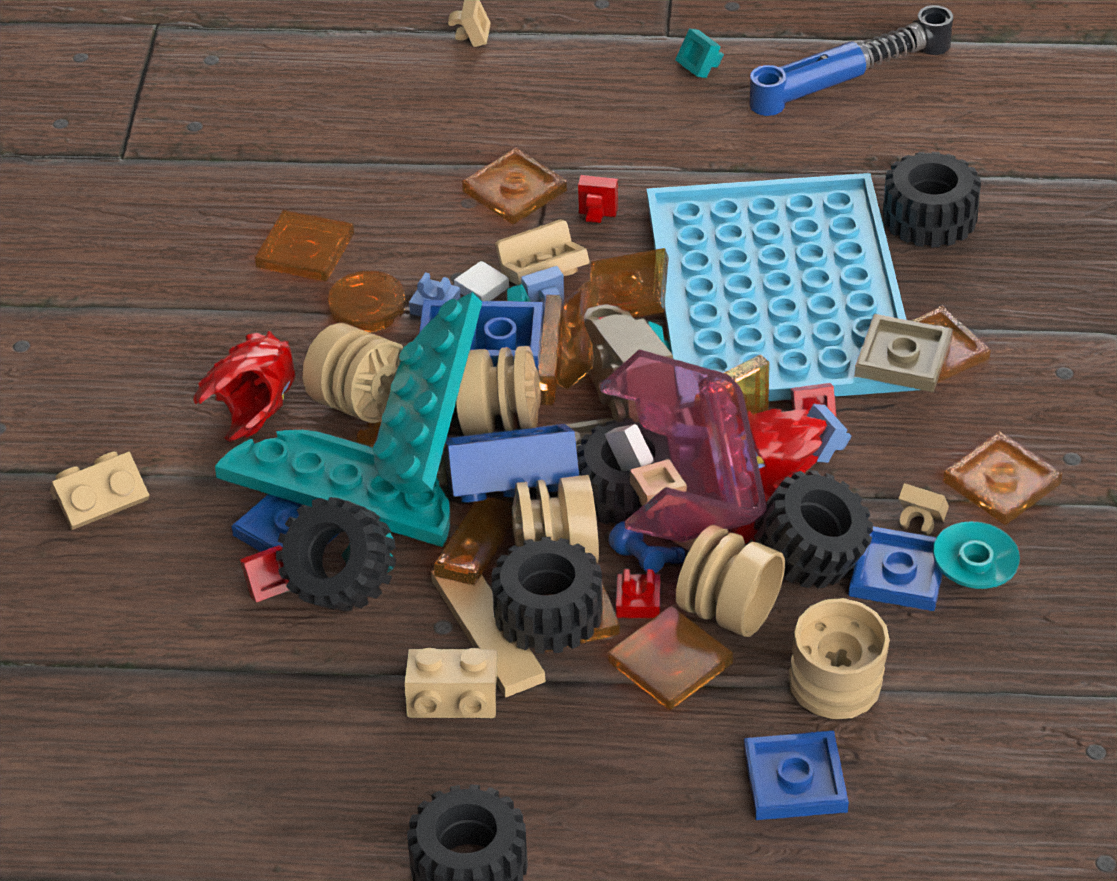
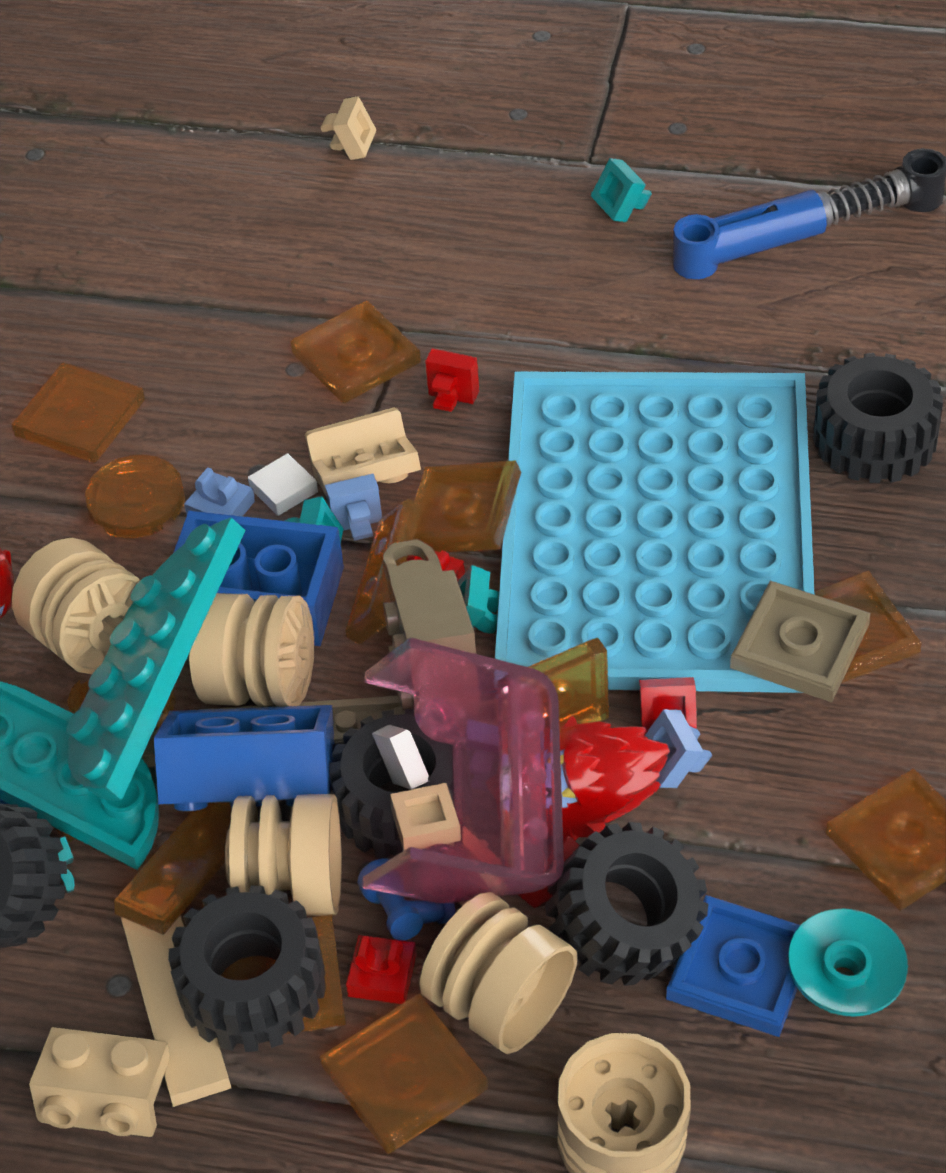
camera: 10 degrees right, 5 degrees up
(550, 349) = (342, 590): clear orange tile -> none
(924, 504) = (788, 874): tan tile -> none

